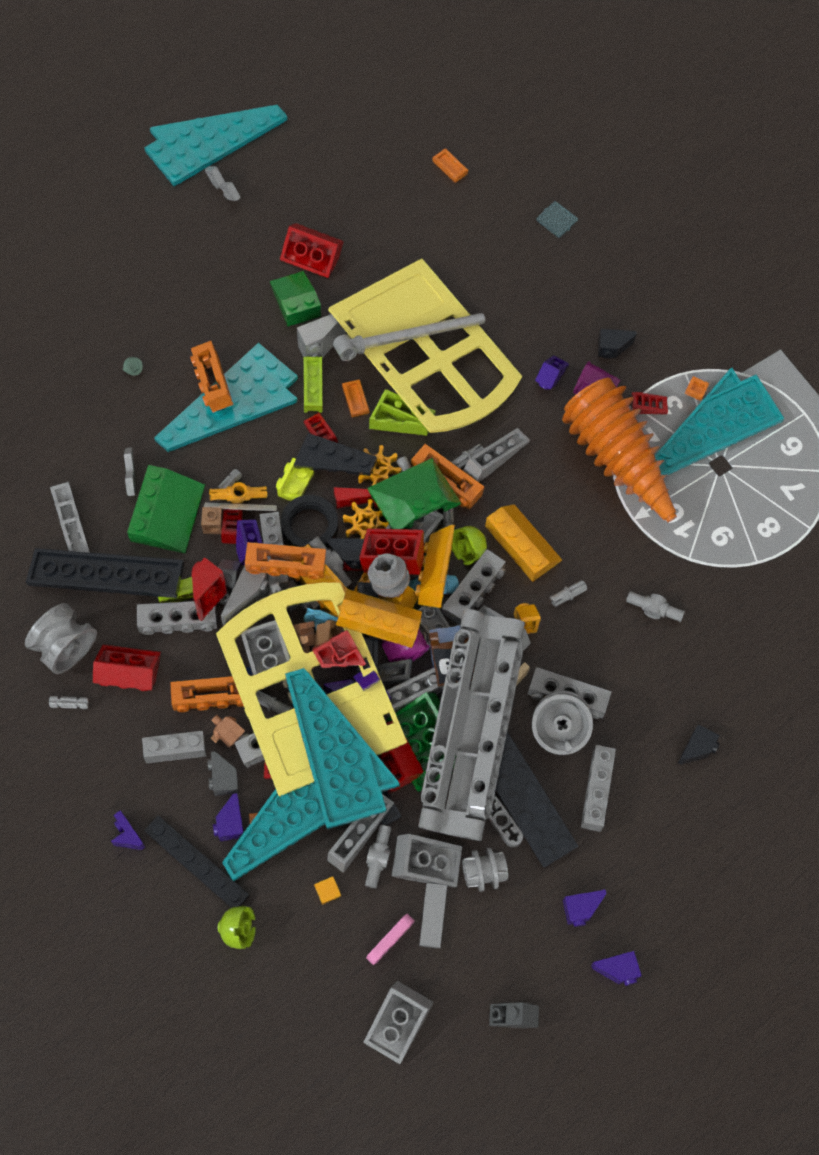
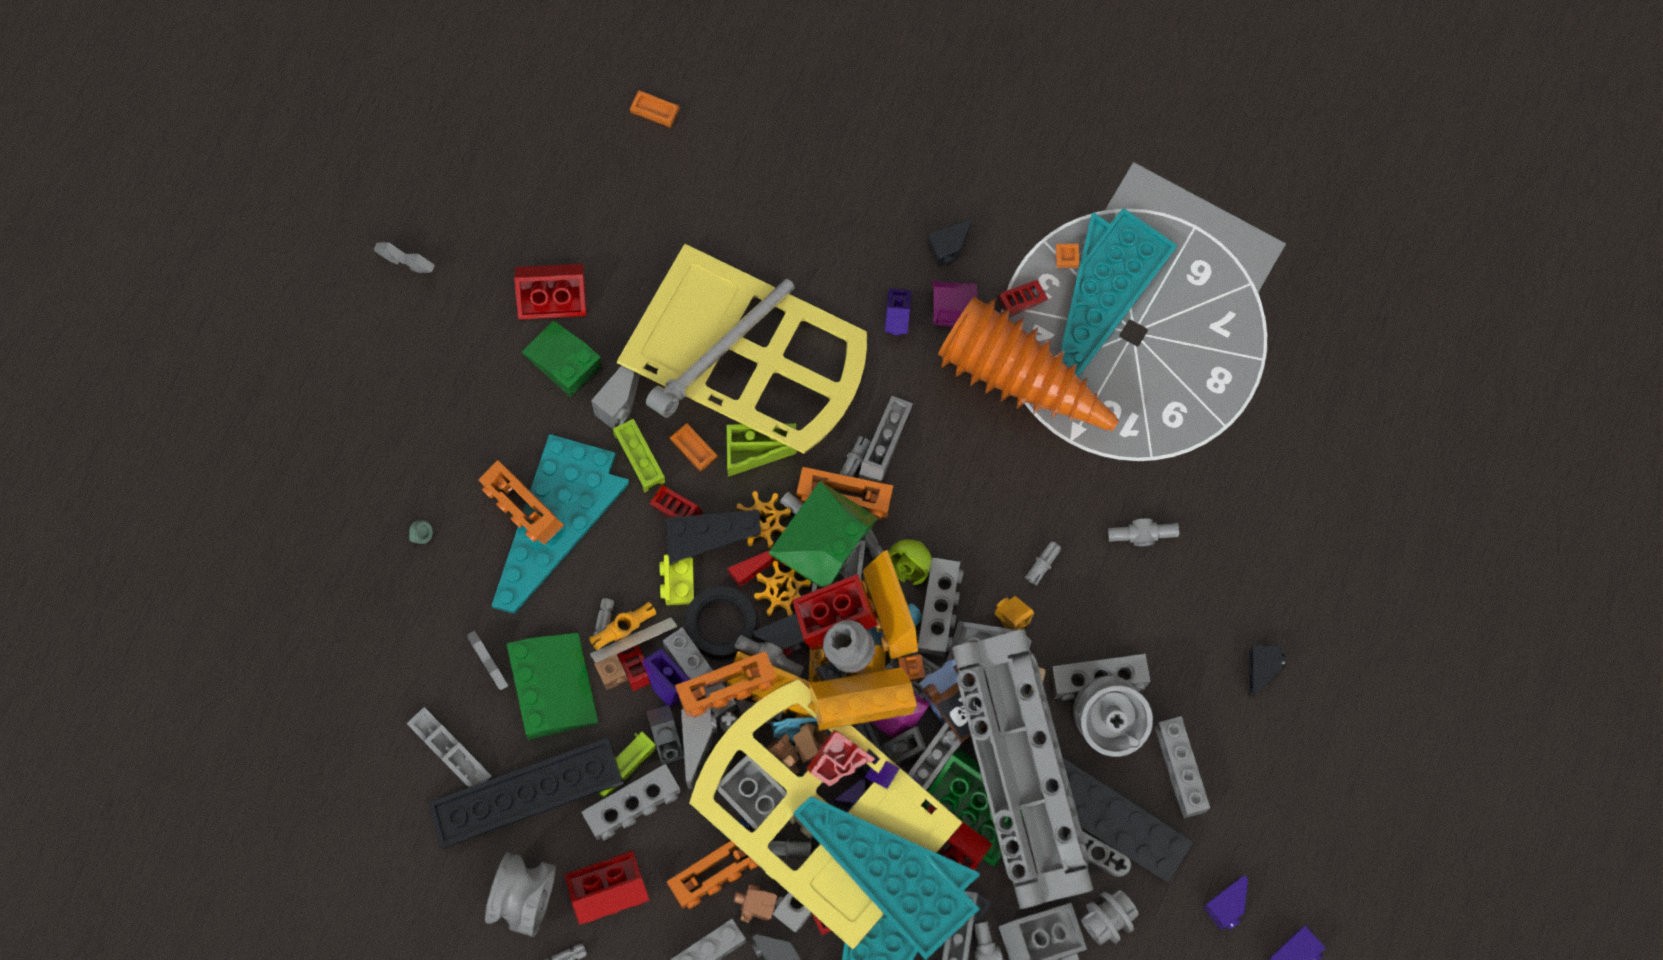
camera: 25 degrees left, 5 degrees up
(196, 144) = (344, 219): teal wing -> none
(208, 587) = (655, 757): red slope -> none
(430, 618) = (913, 667): none -> orange tile
(522, 541) = (964, 527): light orange slope -> none
(557, 219) = (809, 119): clear light blue piece -> none

